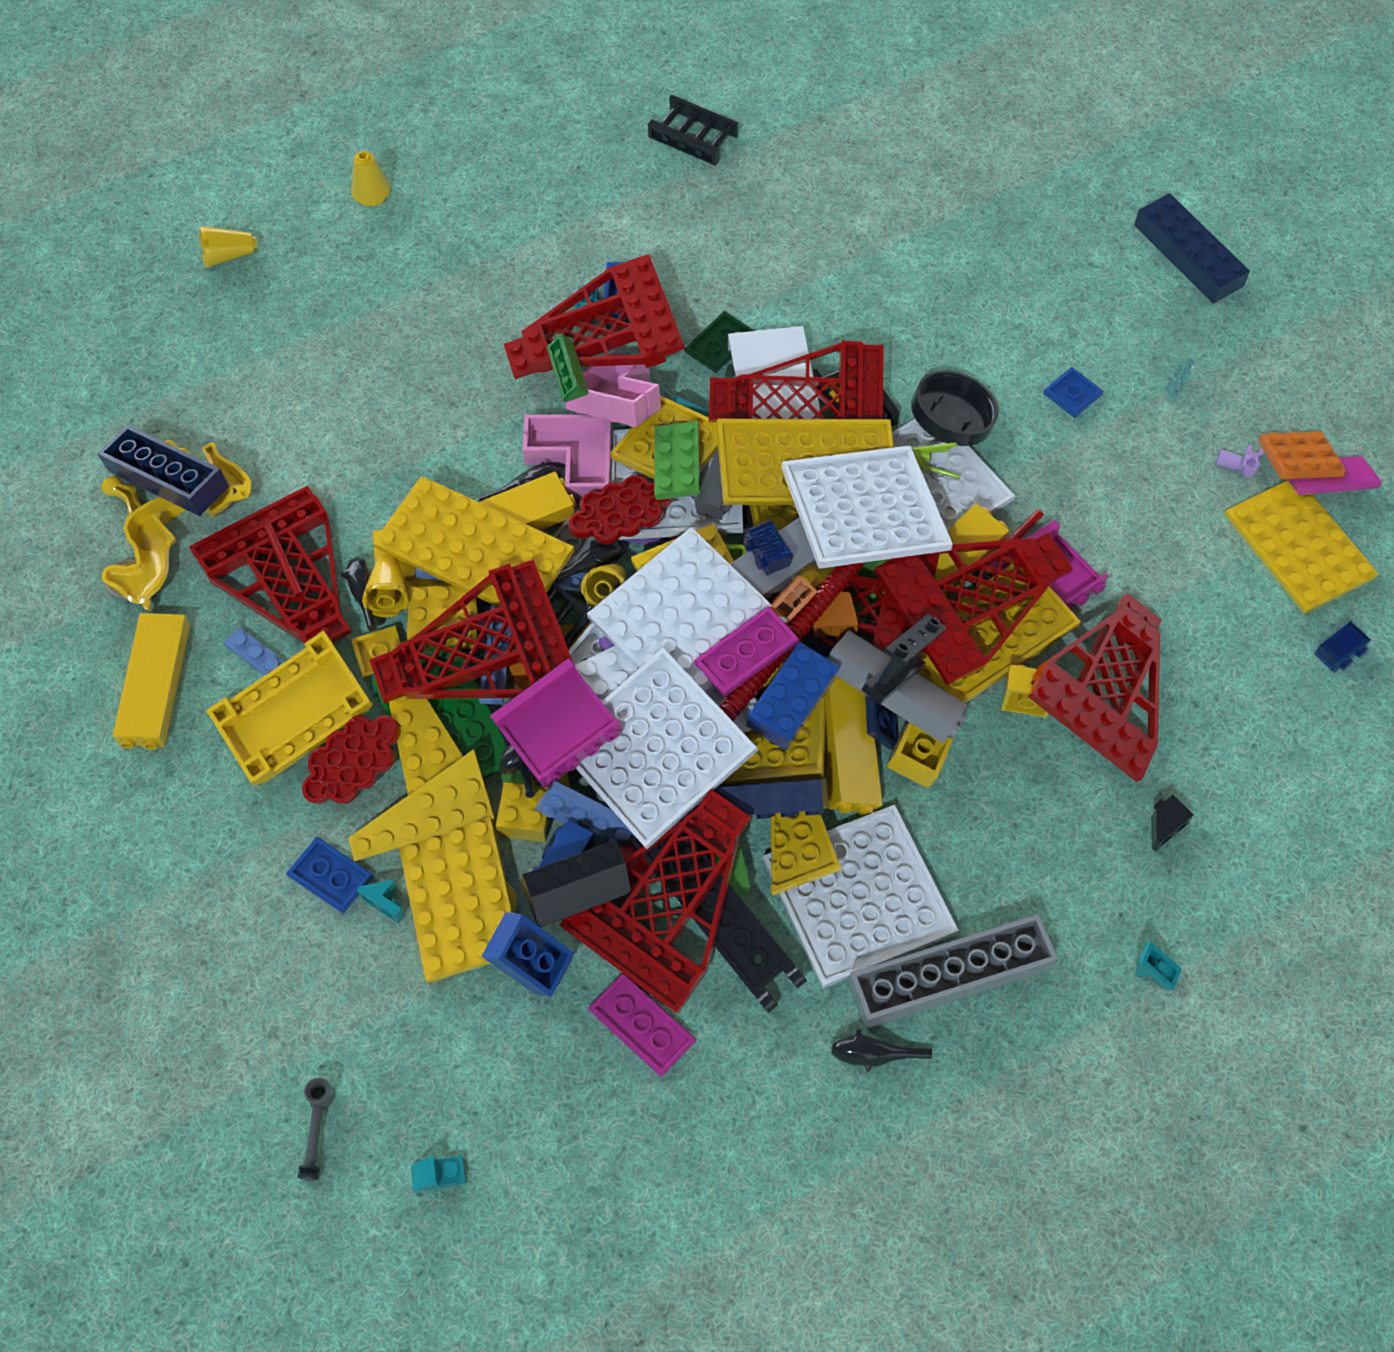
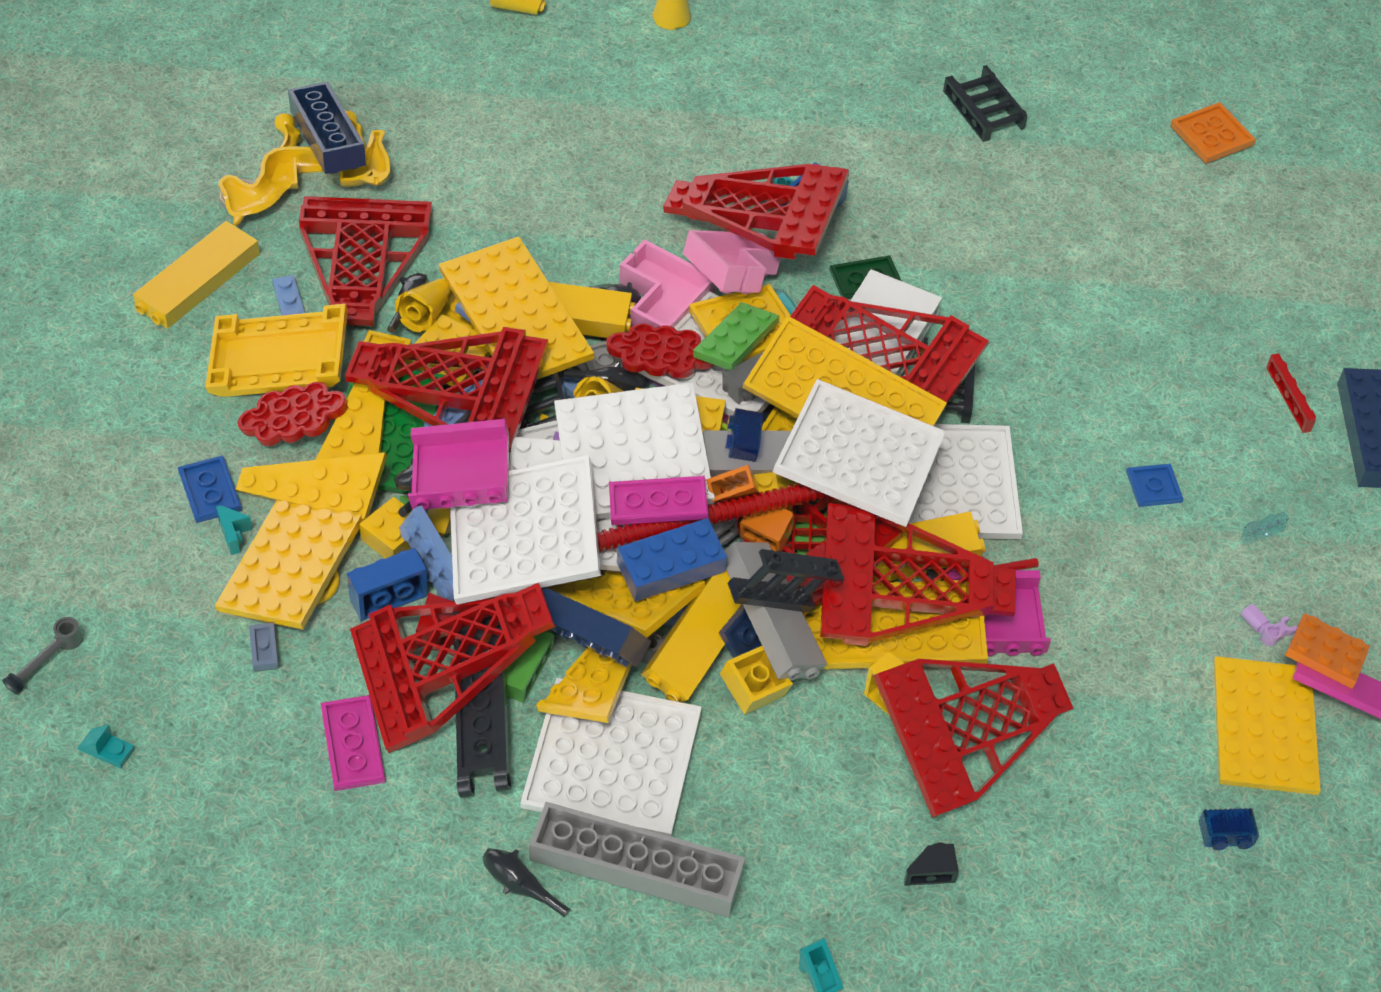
camera: 30 degrees right, 10 degrees down
(282, 558) = (358, 258): red piece -> none
(499, 989) = (263, 646): none -> sand blue plate
(528, 954) = (301, 627): blue brick -> none
(567, 368) = (703, 218): green slope -> none
(576, 884) = (378, 594): black slope -> none
(885, 58) = (1212, 132): none -> orange plate
(922, 455) = (962, 454): lime plant -> none
(954, 408) = (1026, 434): black brick -> none
(1112, 253) = (1291, 393): none -> red plate

